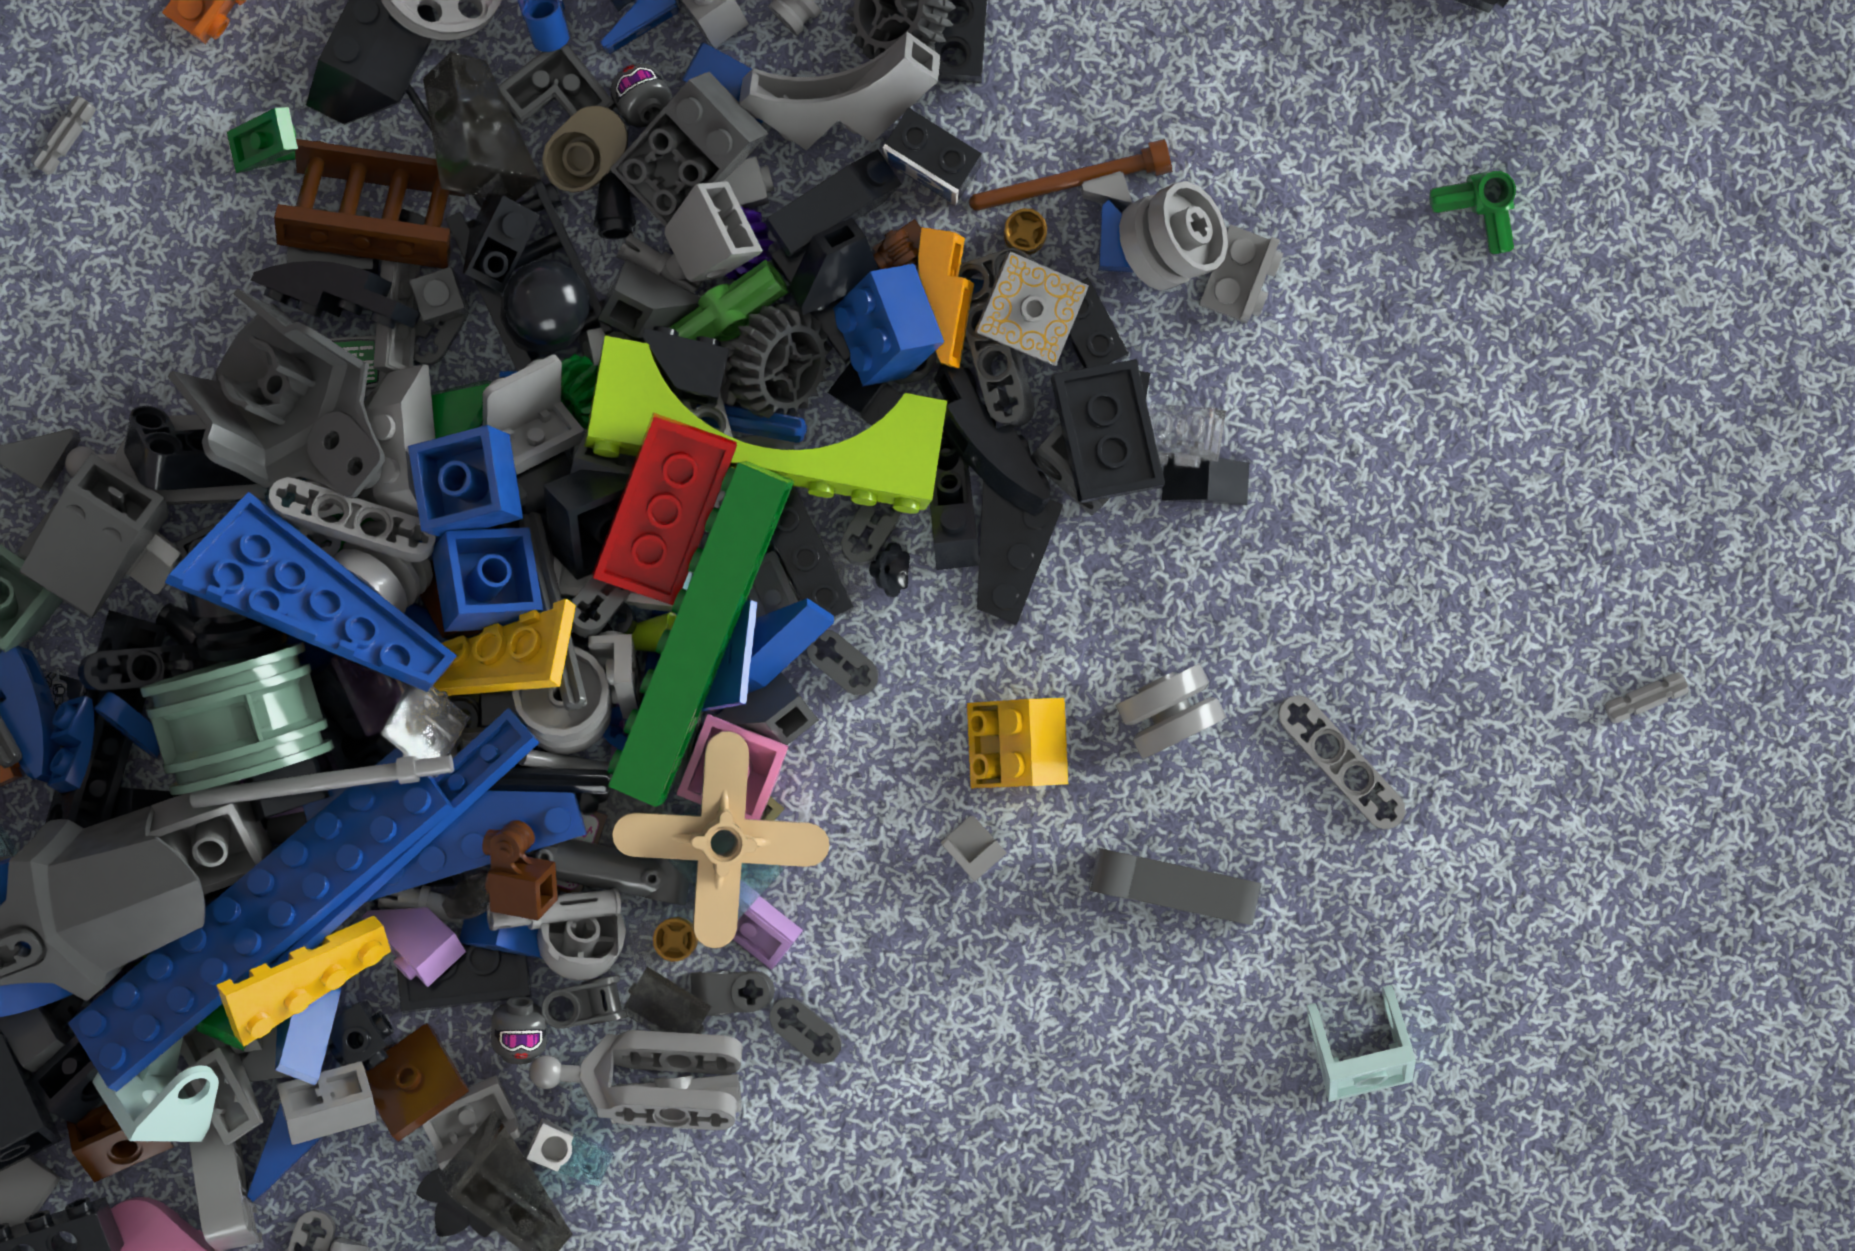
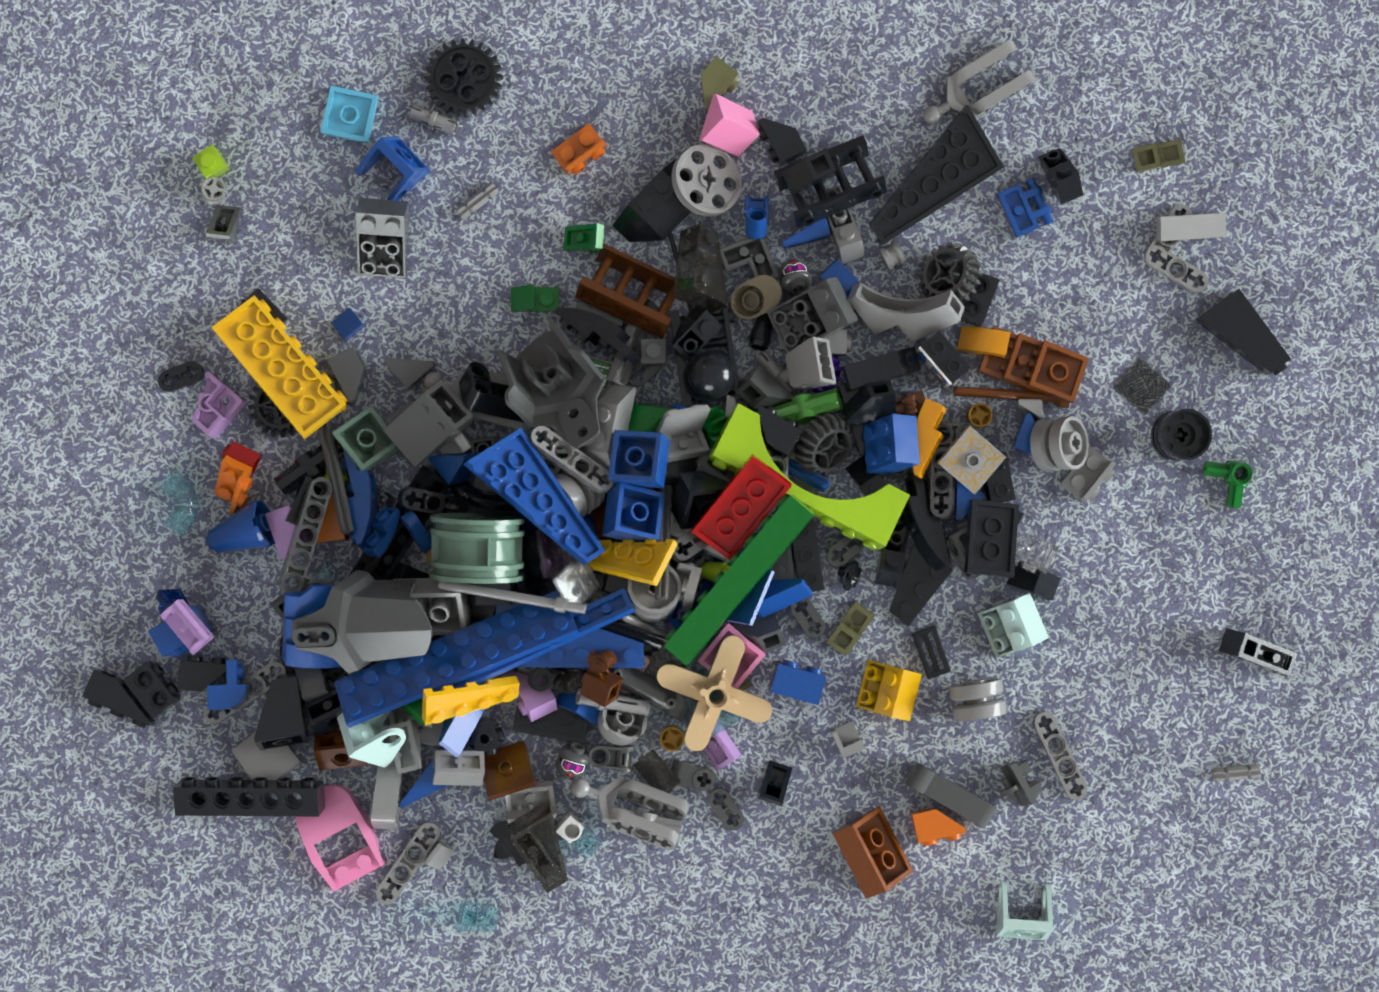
camera: 20 degrees right, 0 degrees up
(155, 600) = (451, 466): none -> blue slope
(212, 270) = (534, 299): none -> green slope
(425, 896) = (547, 679): none -> black plate
(857, 777) = (797, 682): none -> blue brick
(873, 960) = (775, 783): none -> black slope
(921, 659) = (850, 628): none -> olive slope
(993, 103) = (983, 340): none -> light orange slope
(1039, 380) = (963, 496): none -> blue slope
(1047, 627) = (938, 672): none -> black tile
(1076, 1025) = (873, 852): none -> dark orange slope
(1089, 117) = (1037, 367): none -> dark orange slope
(1165, 945) = (933, 825): none -> orange slope
(1193, 567) = (1013, 625): none -> light aqua slope
(1283, 835) = (1016, 784): none -> dark grey hips
(1286, 96) = (1142, 386): none -> clear smoke piece
(1378, 132) = (1195, 435): none -> black wheel
(1618, 482) = (1257, 651): none -> black slope

